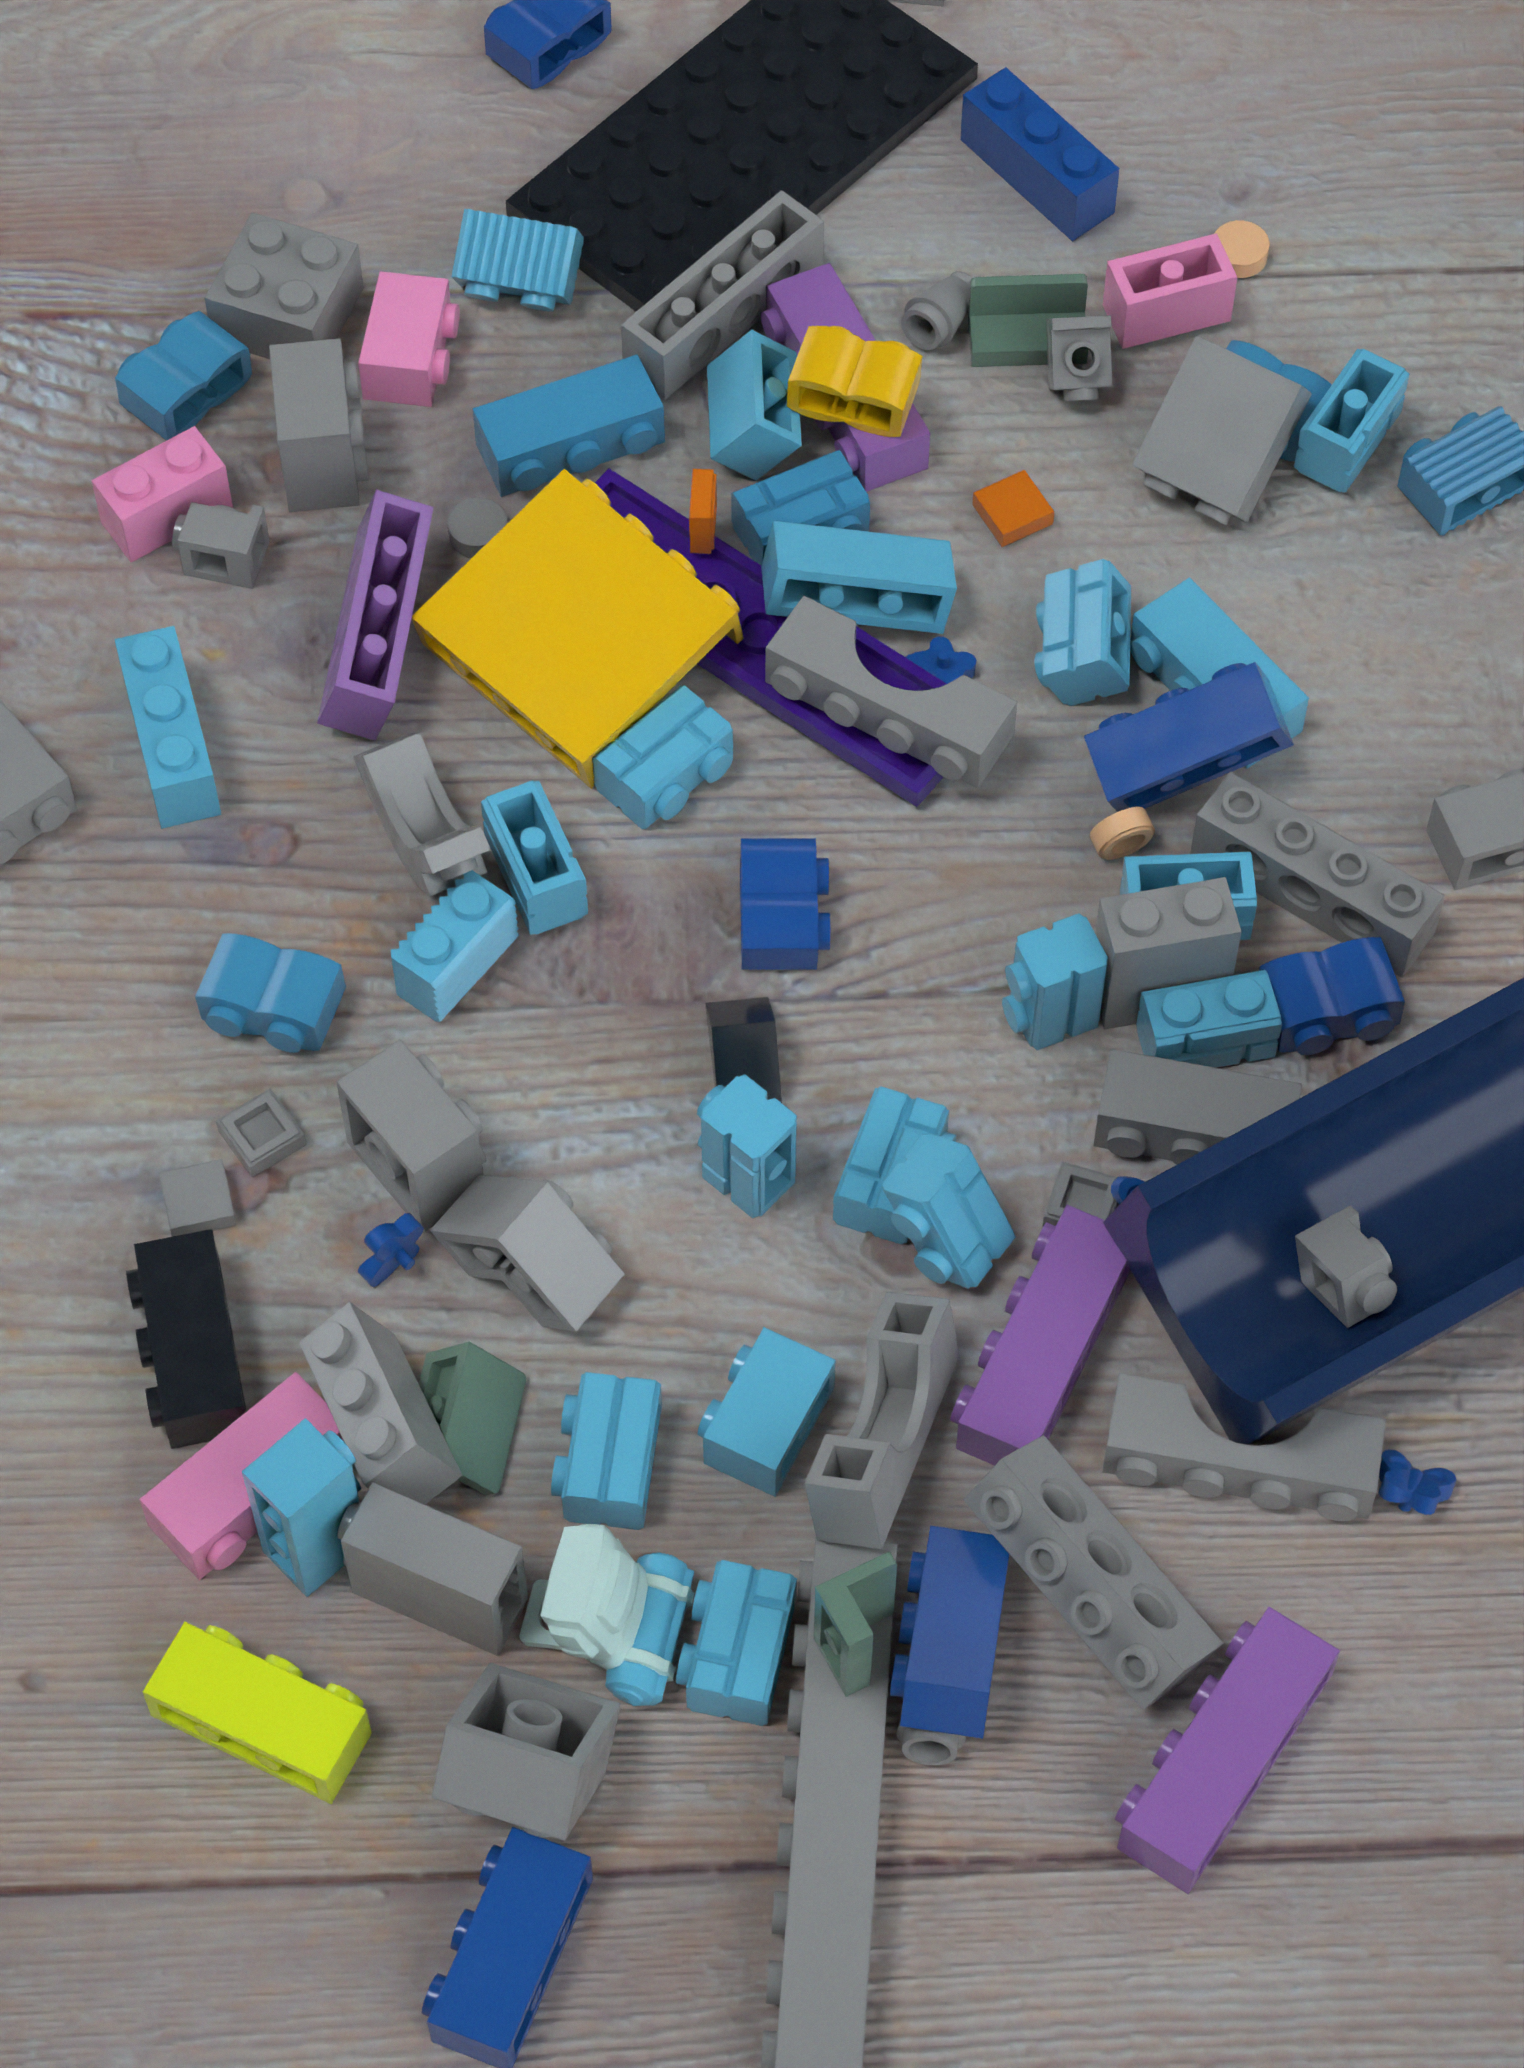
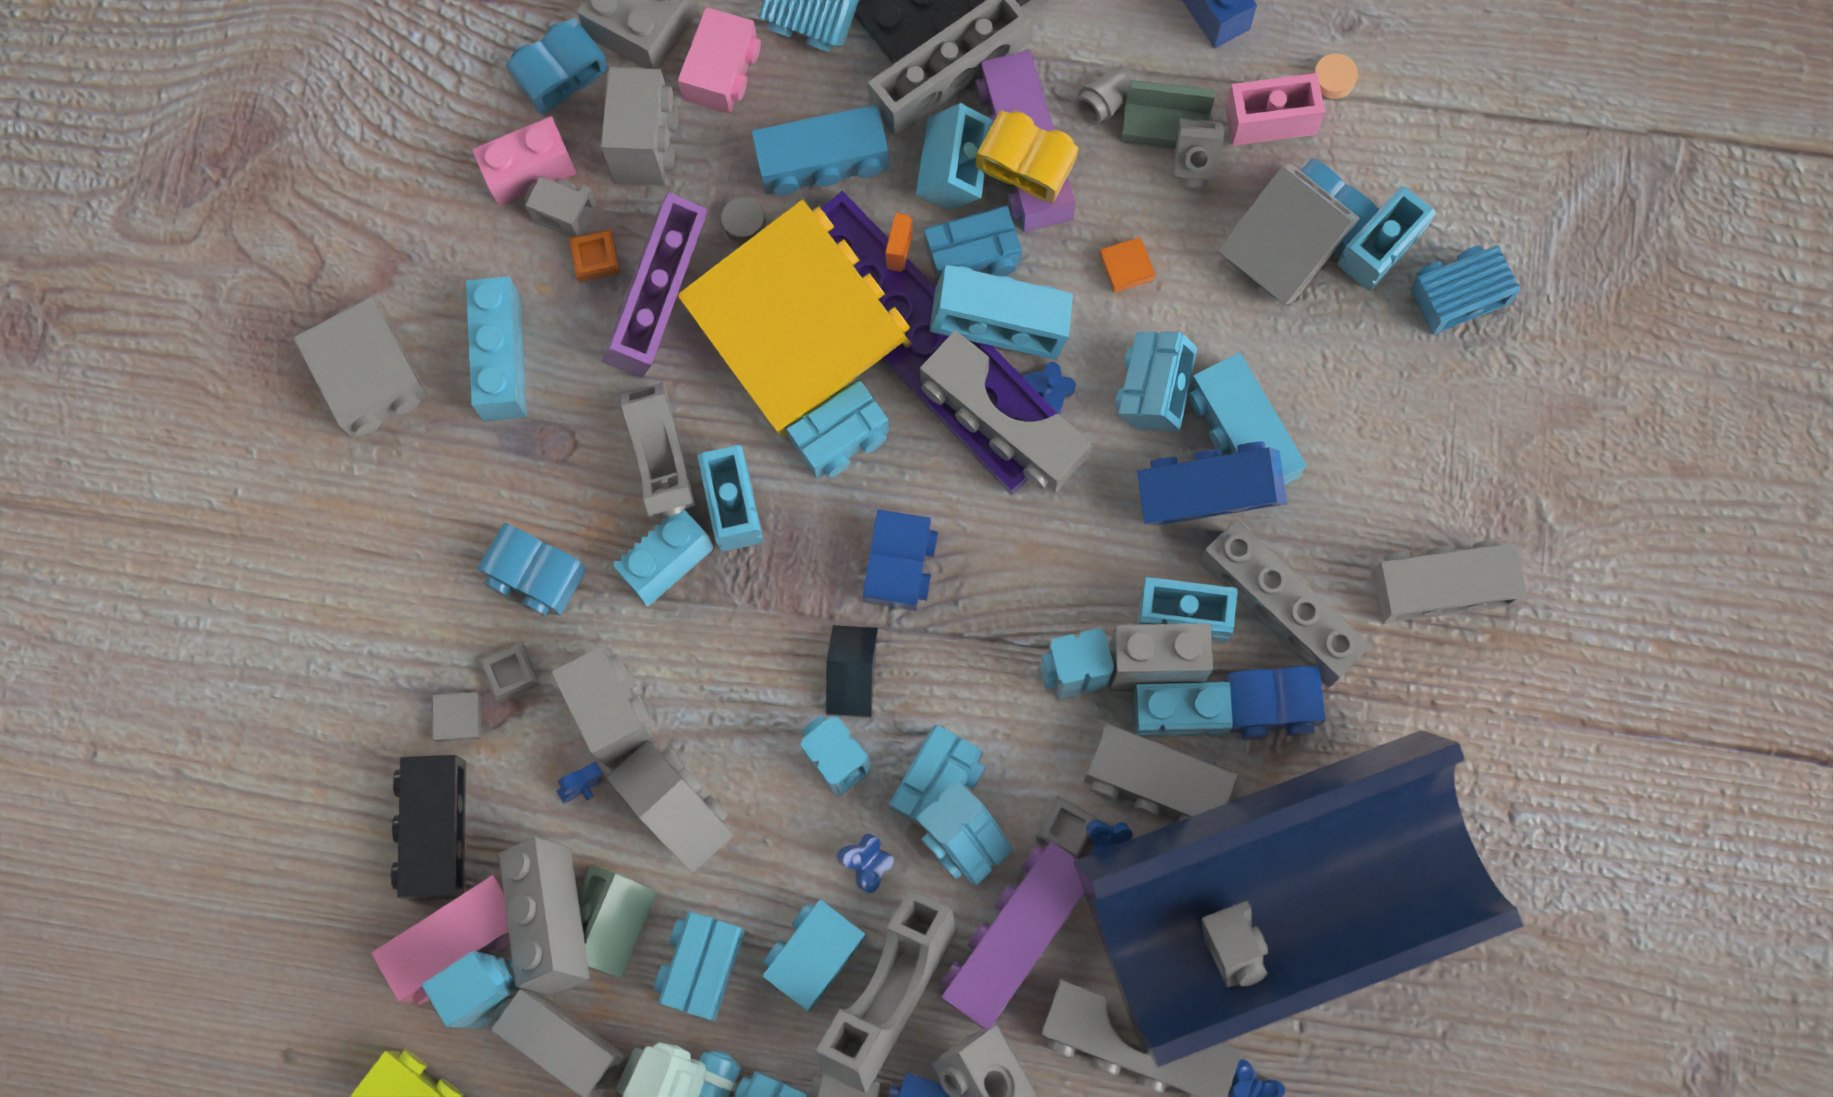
camera: 15 degrees right, 15 degrees up
(279, 601) = (594, 256): none -> orange tile
(816, 1284) = (867, 861): none -> blue piece
(1122, 833) = (1152, 545): light nougat tile -> none

